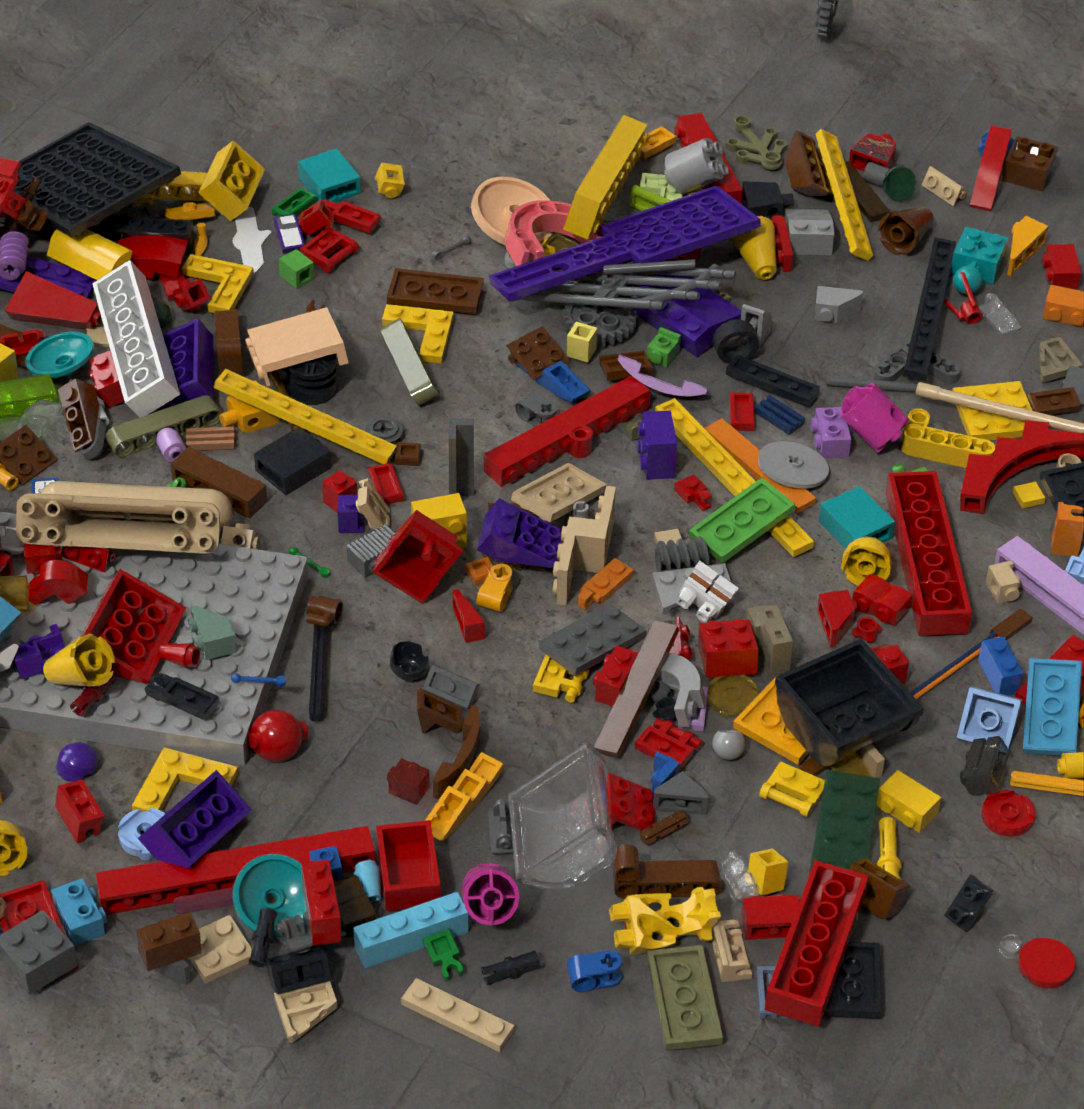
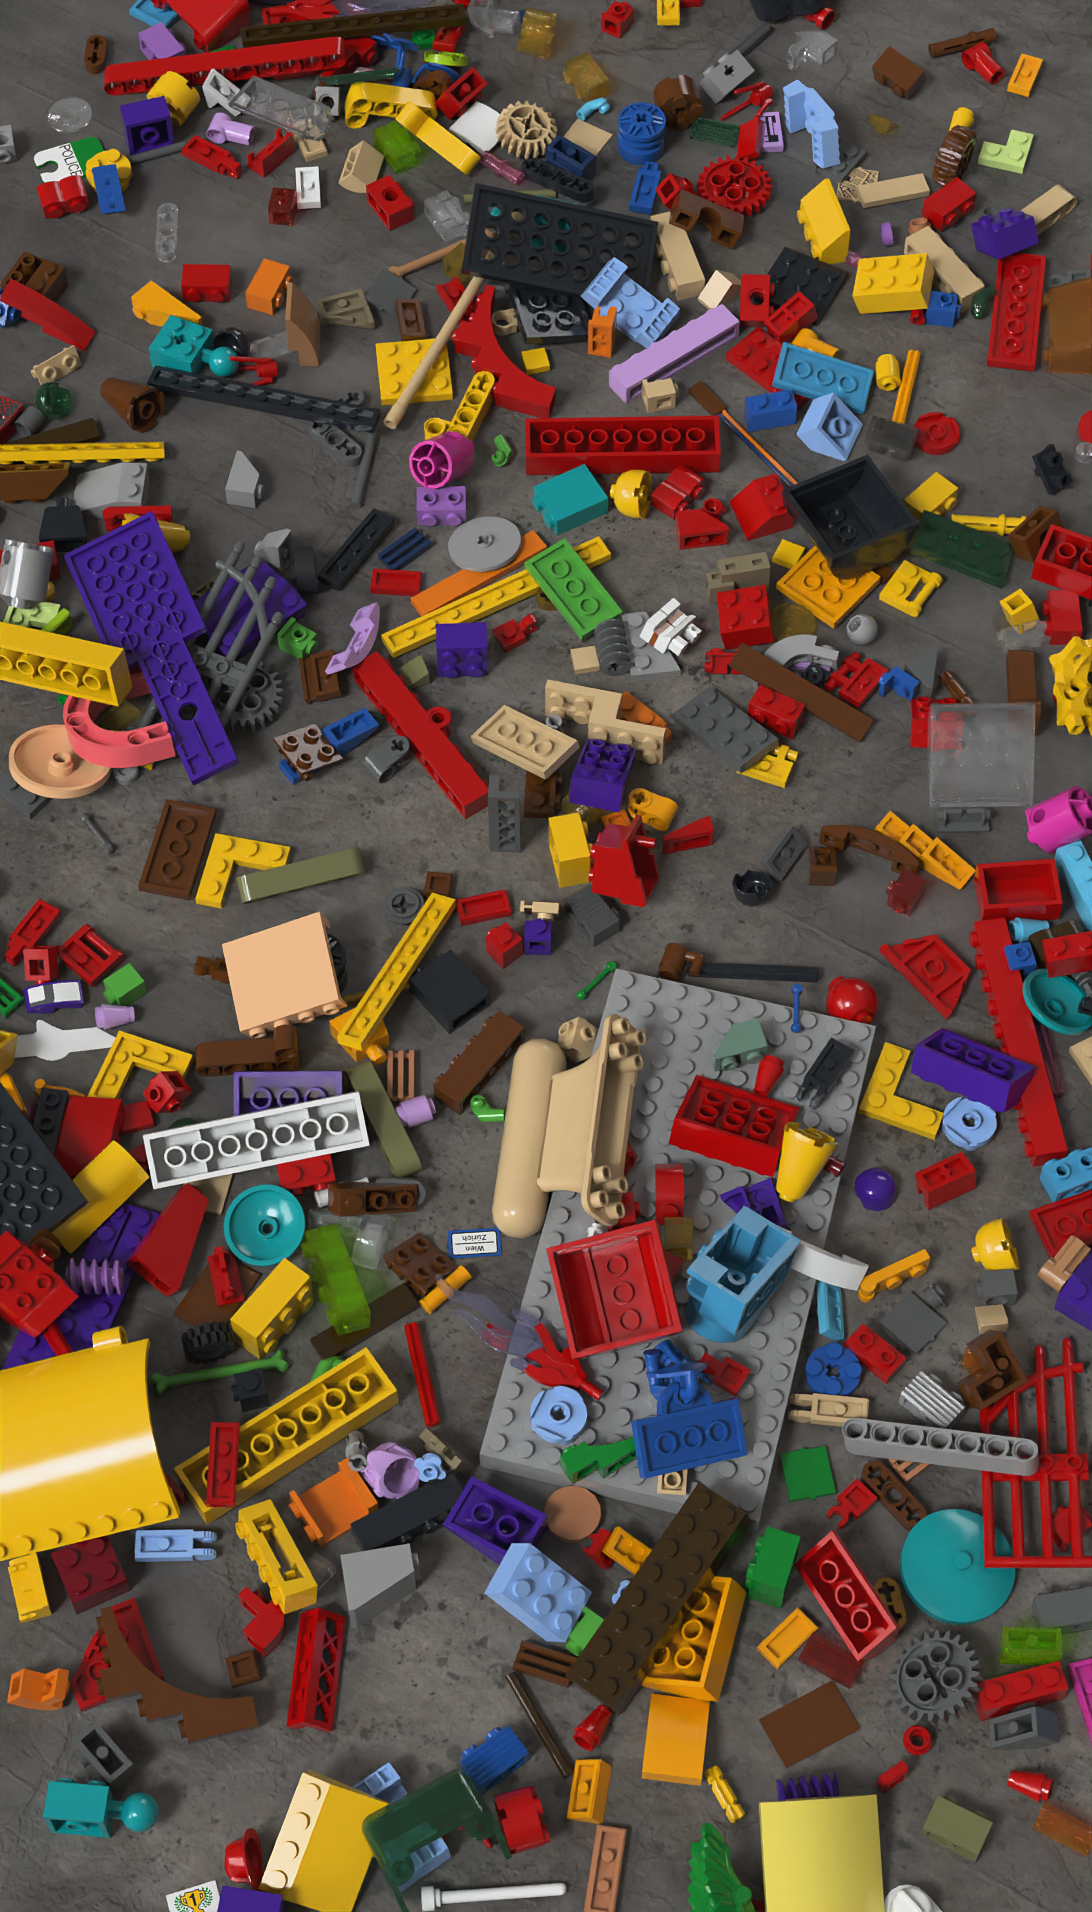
camera: 85 degrees left, 15 degrees up
(269, 264) = (111, 1016): none -> lavender cone
(318, 803) = (931, 970): none -> red wing
(581, 342) = (289, 709): light yellow brick -> none
(649, 267) = (209, 623): dark grey bar -> none
(992, 284) = (234, 339): none -> black hair
(1013, 315) = (302, 326): none -> medium nougat slope

